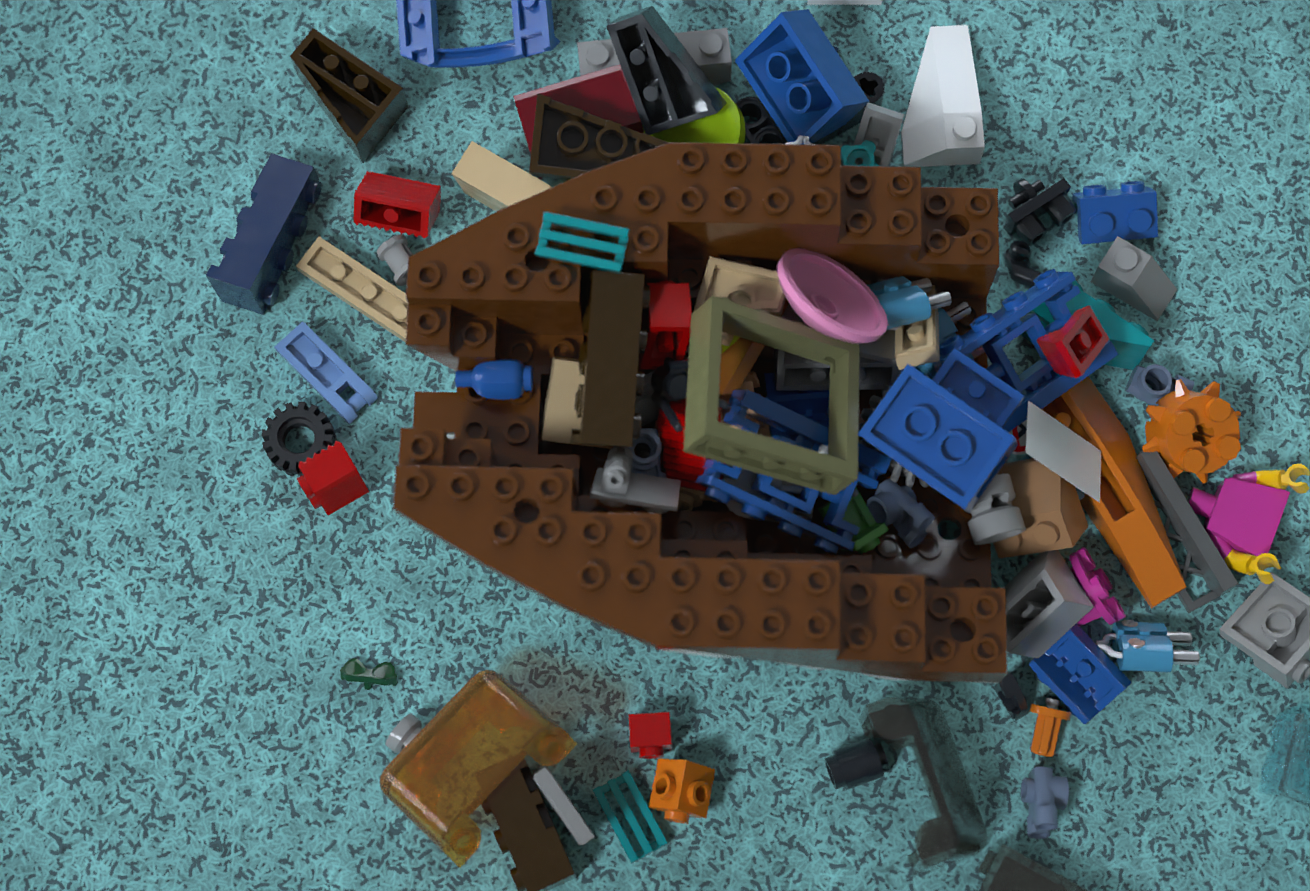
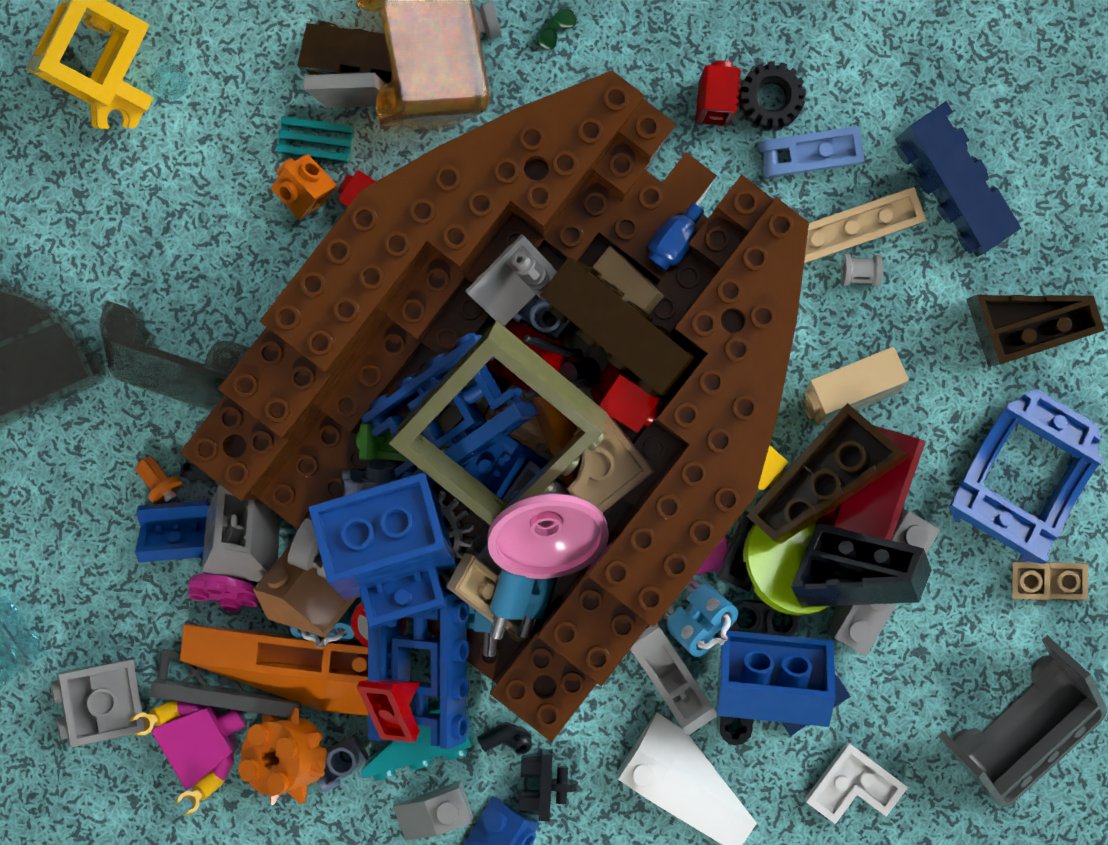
camera: 120 degrees right, 15 degrees up
(396, 204) = (908, 297): red brick -> none
(584, 225) = (707, 349): teal tile -> none
(856, 764) = (231, 321): black brick -> none
(864, 151) = (673, 663): teal plate -> none
(1044, 797) = (112, 439): sand blue plate -> none
(1063, 451) = (325, 637): white sticker -> none
(1148, 647) = (155, 592): dark azure piece -> none

